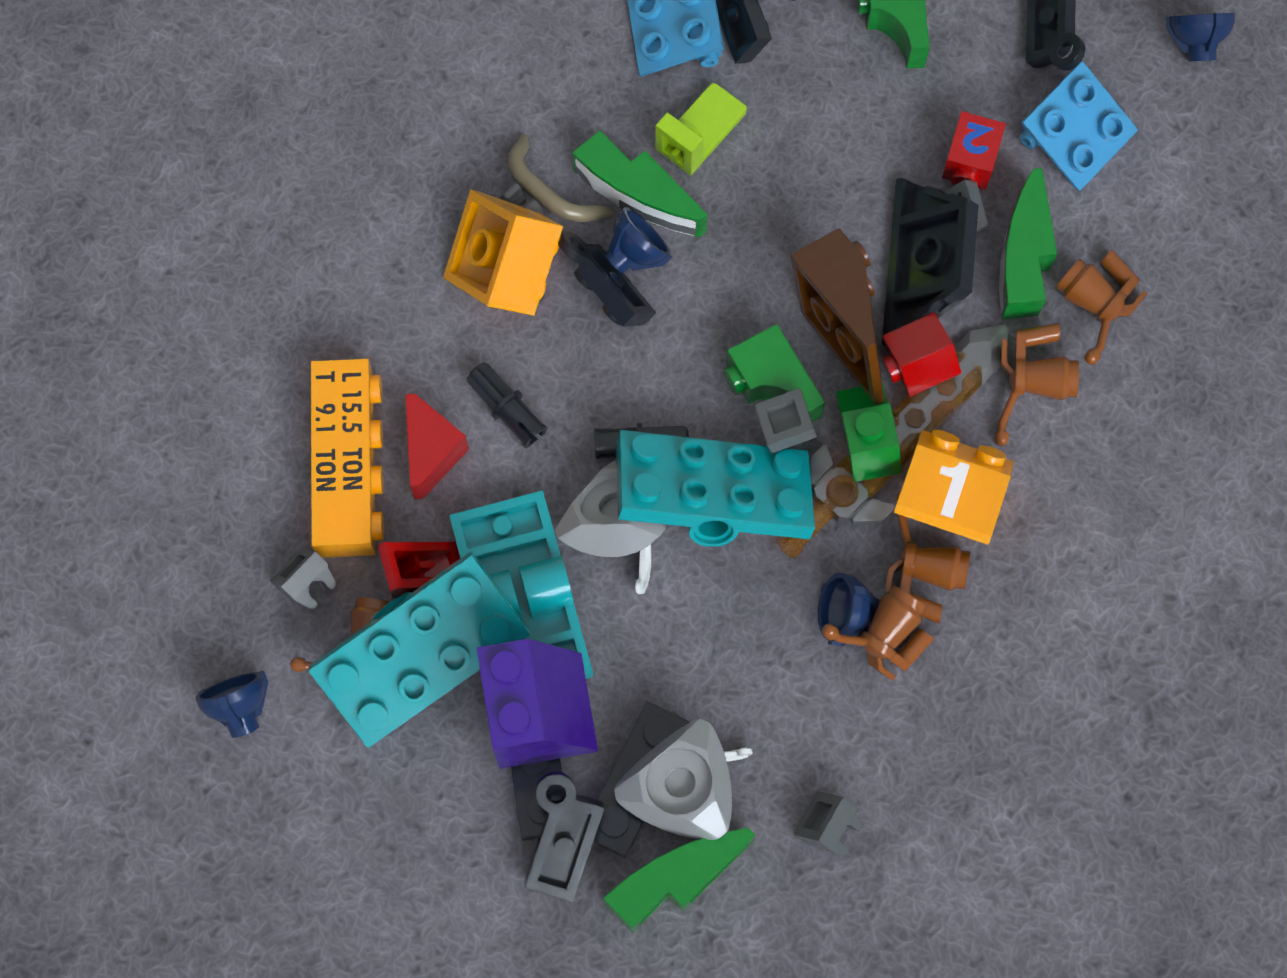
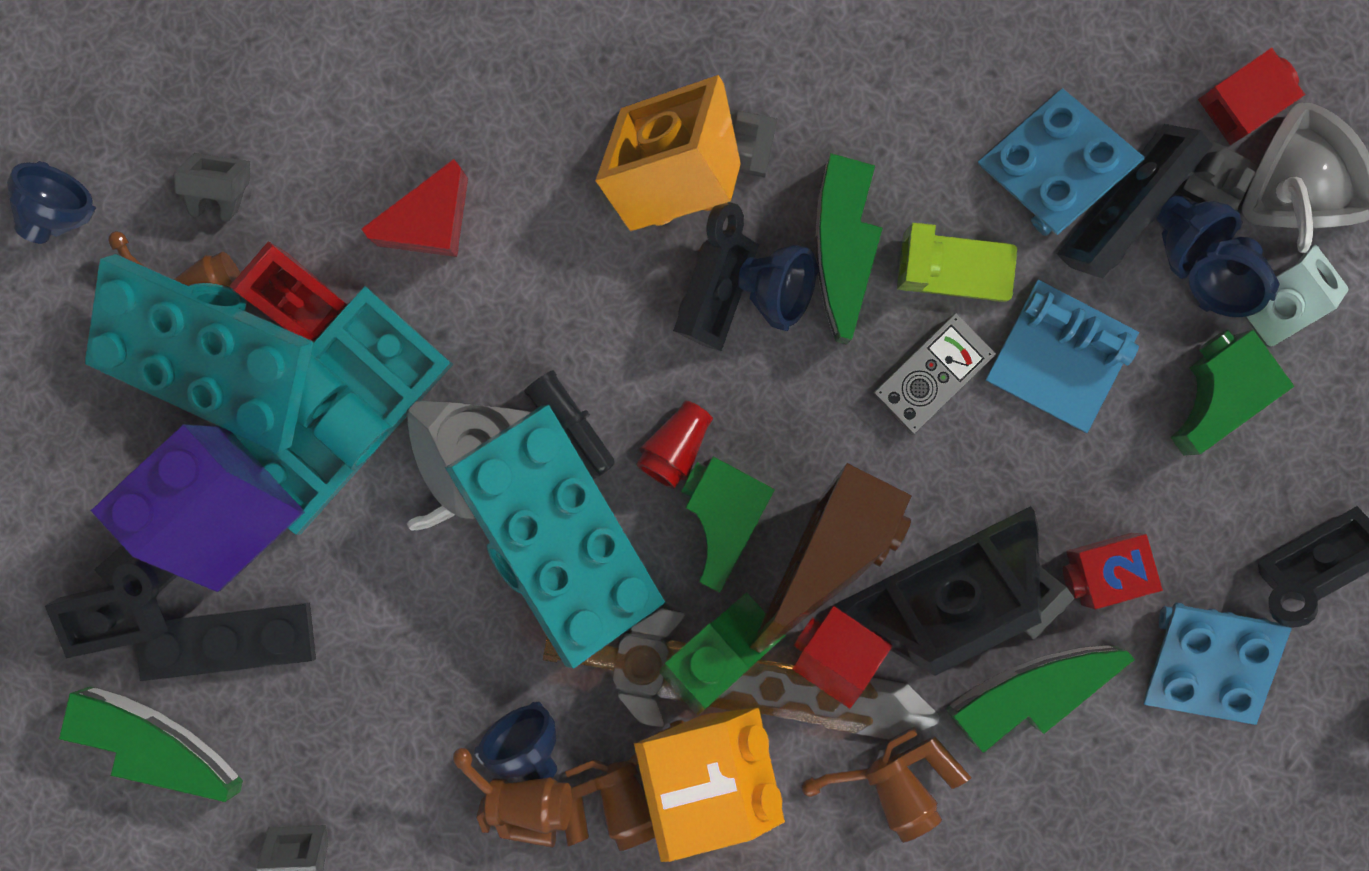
camera: 55 degrees right, 15 degrees up
(344, 458) = (357, 141): light orange brick -> none
(506, 404) = (522, 264): black axle -> none
(544, 194) = (772, 149): dark tan animal -> none
(683, 783) = (235, 698): light grey hat -> none
(703, 382) = (674, 447): none -> red cone
(764, 187) = (934, 373): none -> tile
(785, 420) = (670, 567): dark grey tile -> none
(807, 99) = (1063, 356): none -> dark azure hinge
(1091, 291) = (1031, 783): dark orange piece -> none

